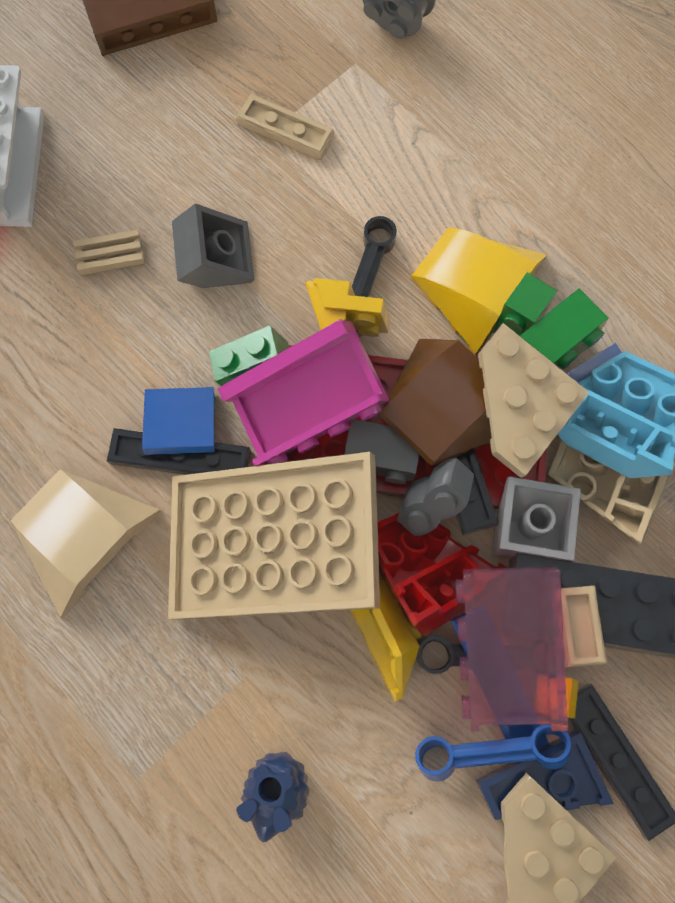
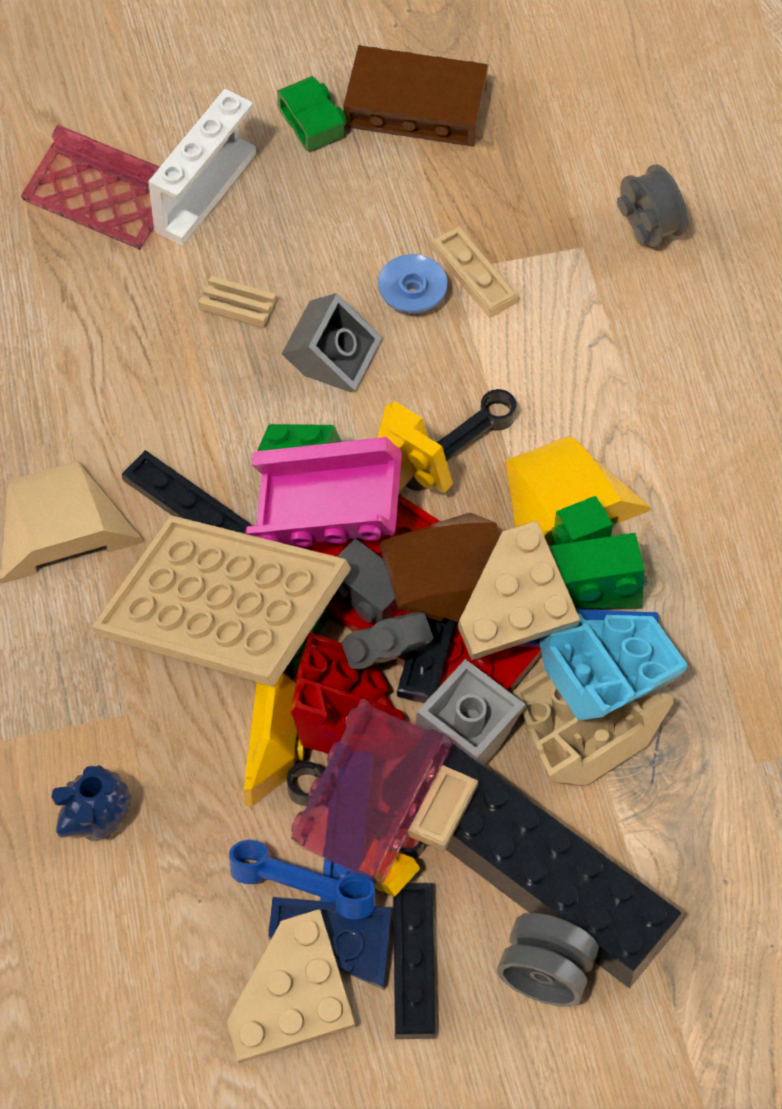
camera: 30 degrees right, 15 degrees down
(69, 55) = (311, 113): none -> green brick
(179, 421) = (206, 472): blue tile -> none
(243, 151) = (416, 273): none -> medium blue dish

